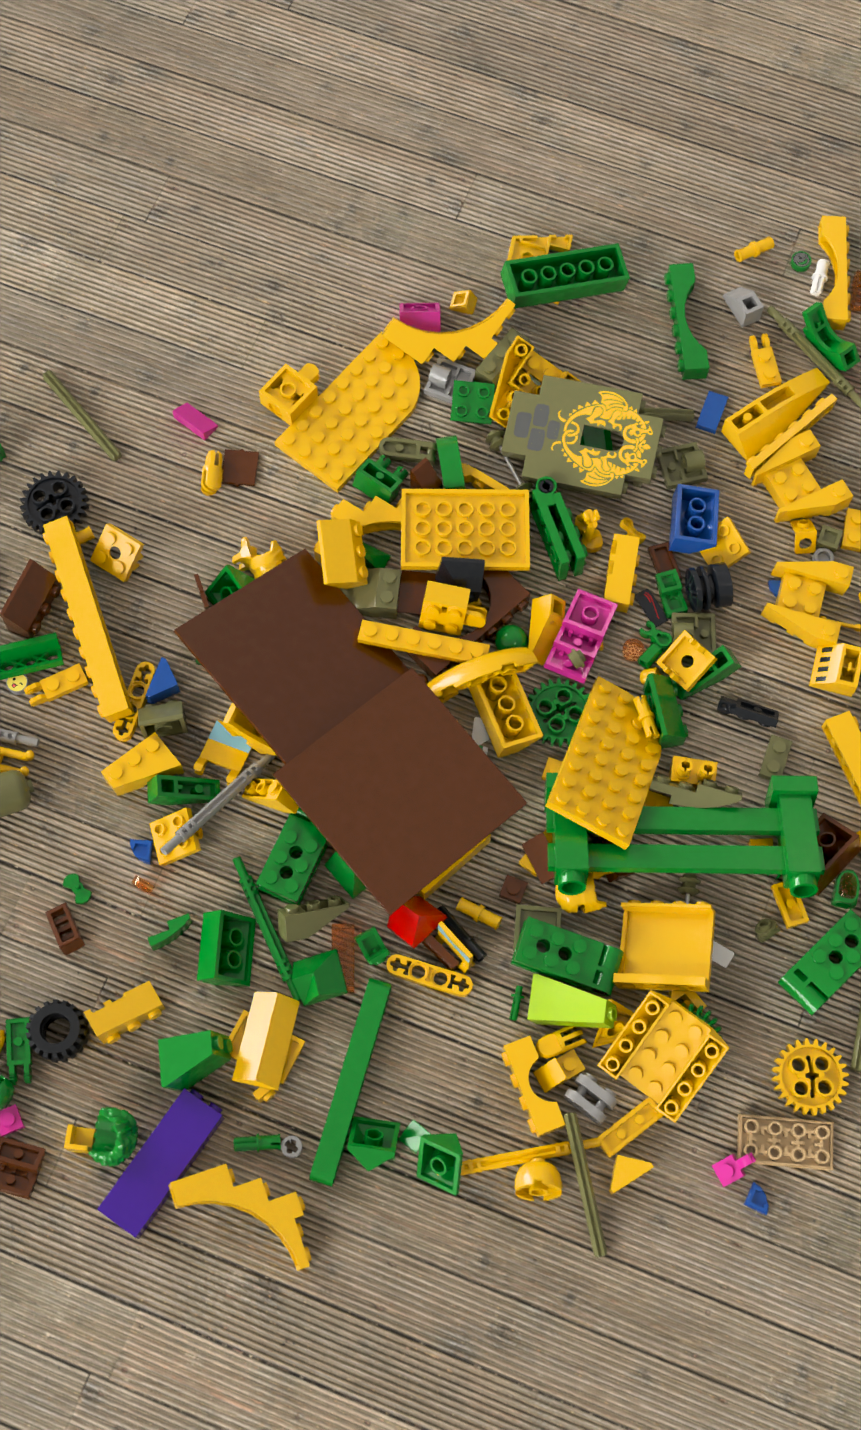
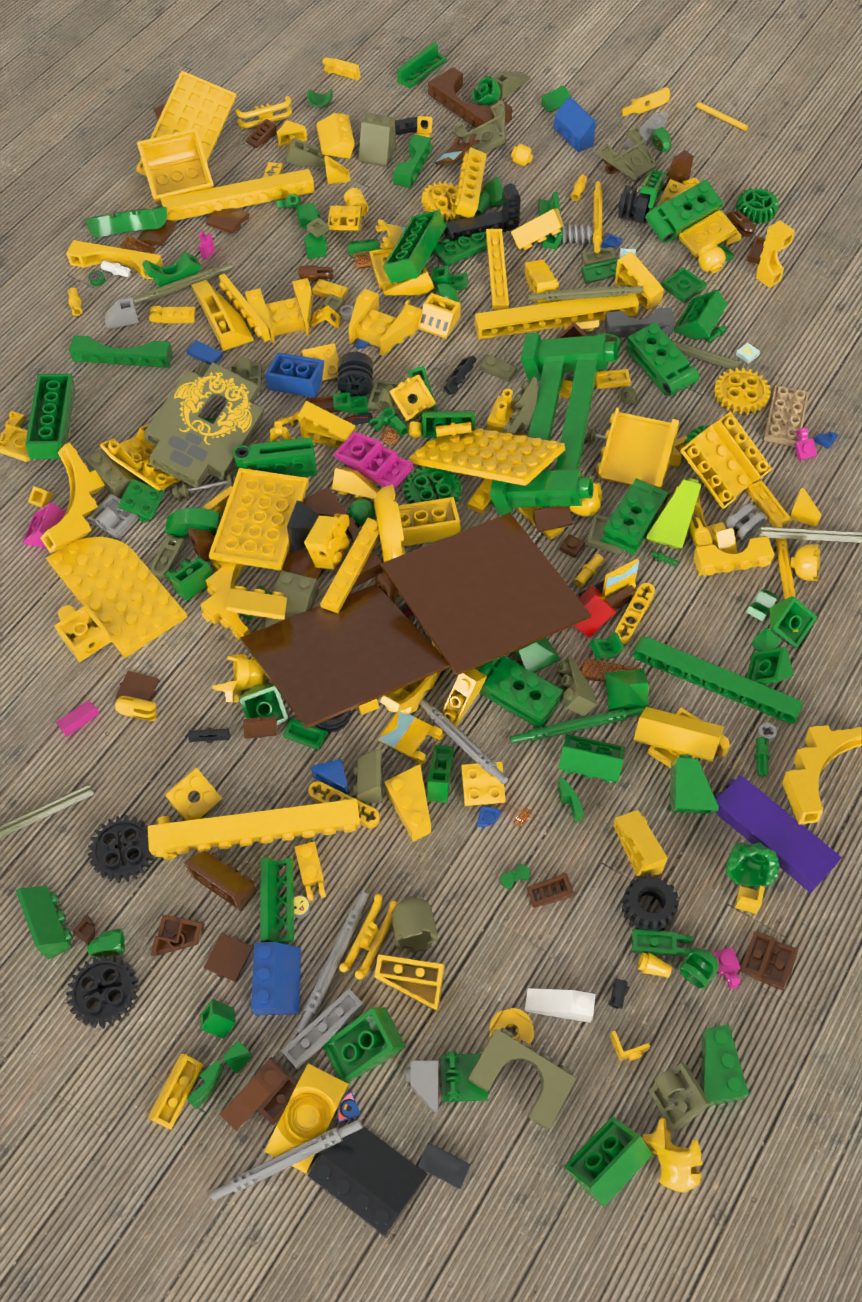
camera: 75 degrees left, 10 degrees down
(194, 550) = (213, 735): none -> black pin
(469, 1129) = (762, 603): none -> slope
(577, 658) = (395, 461): olive plate -> none

